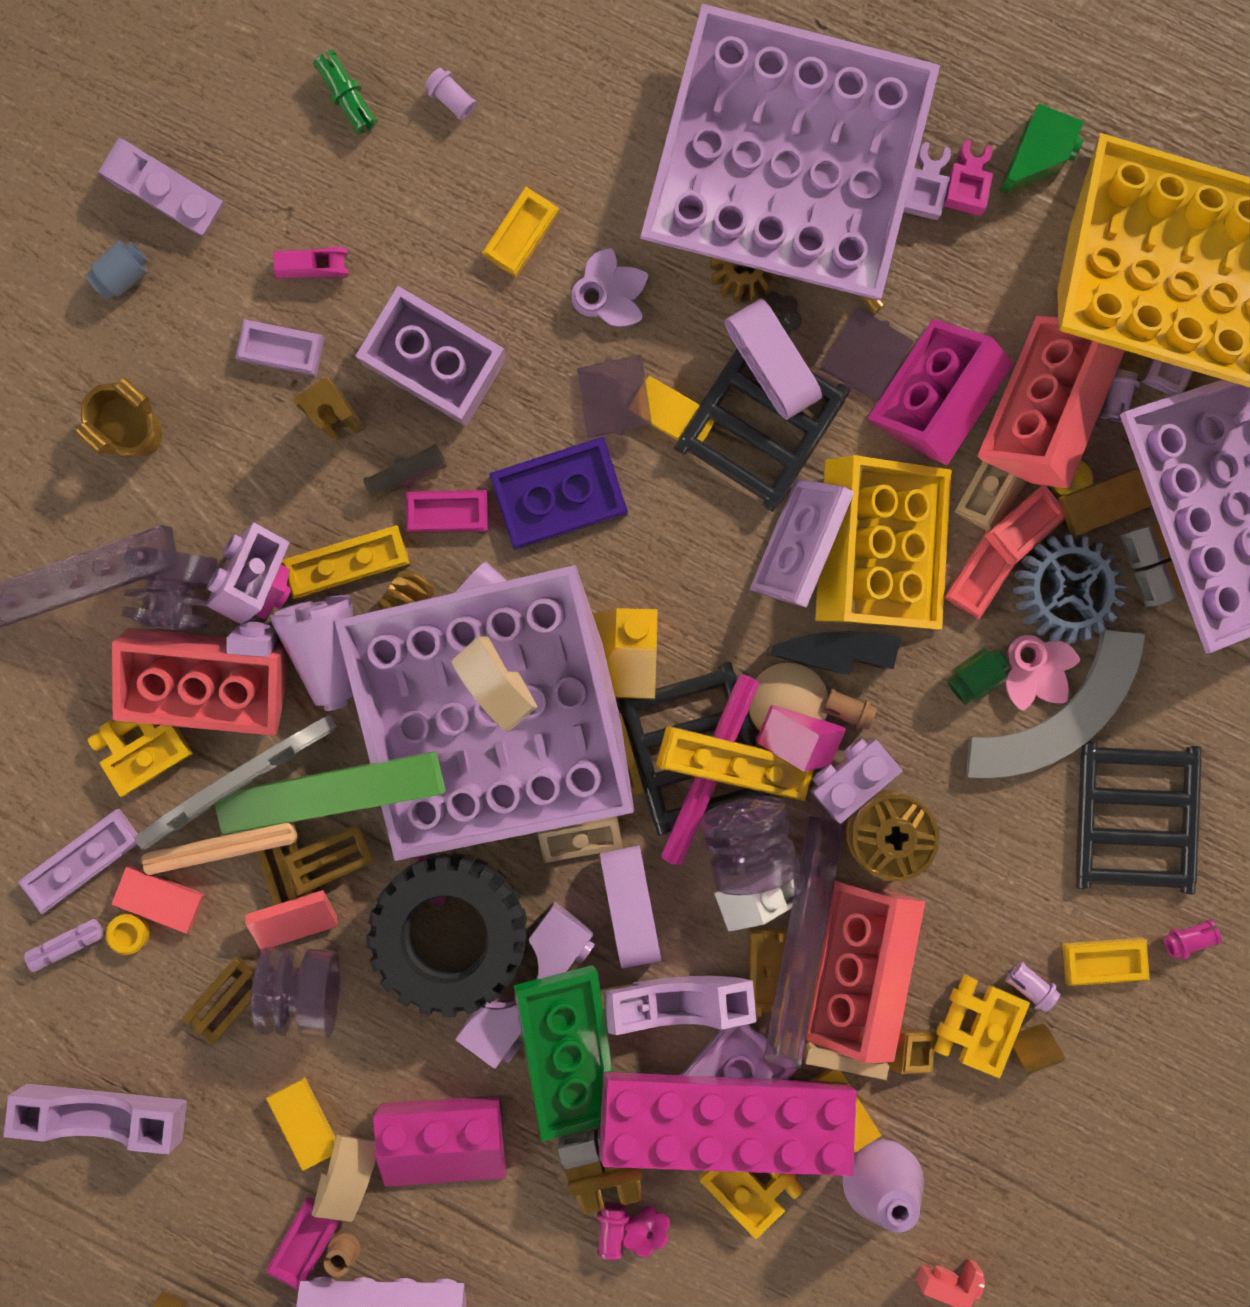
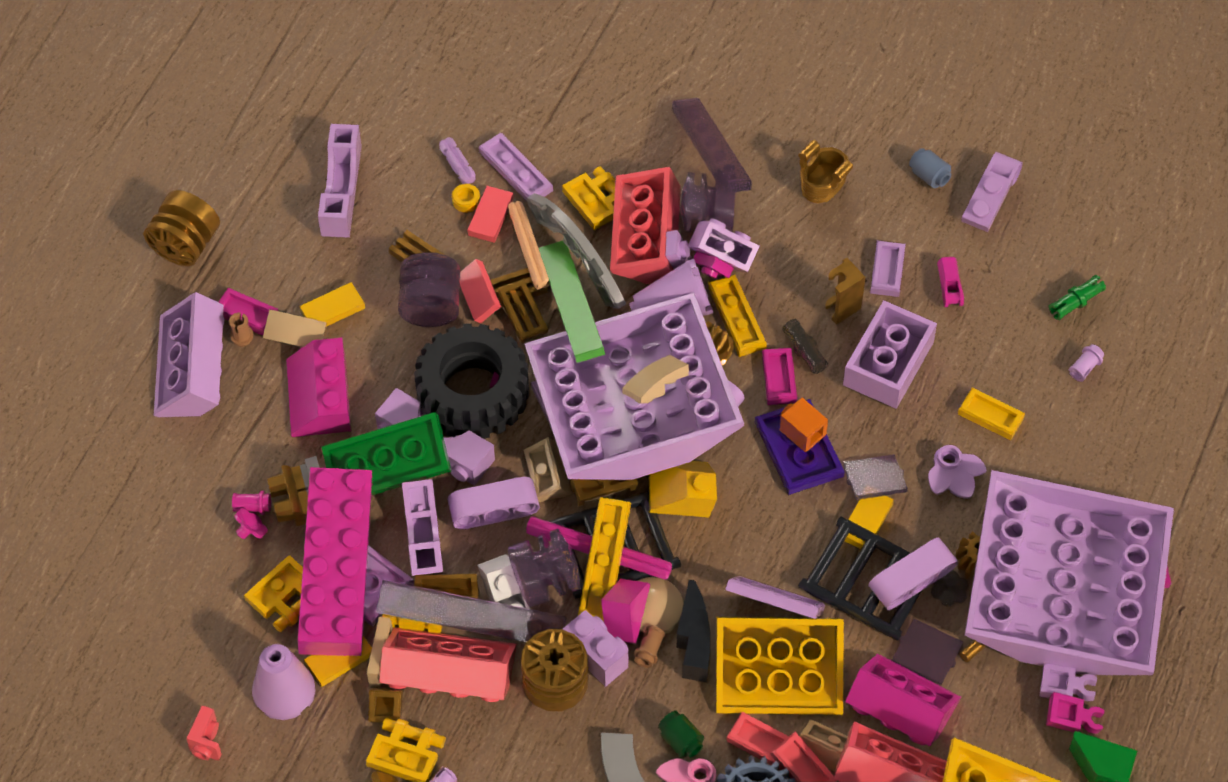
camera: 90 degrees right, 30 degrees down
(539, 485) = (803, 424): none -> orange brick

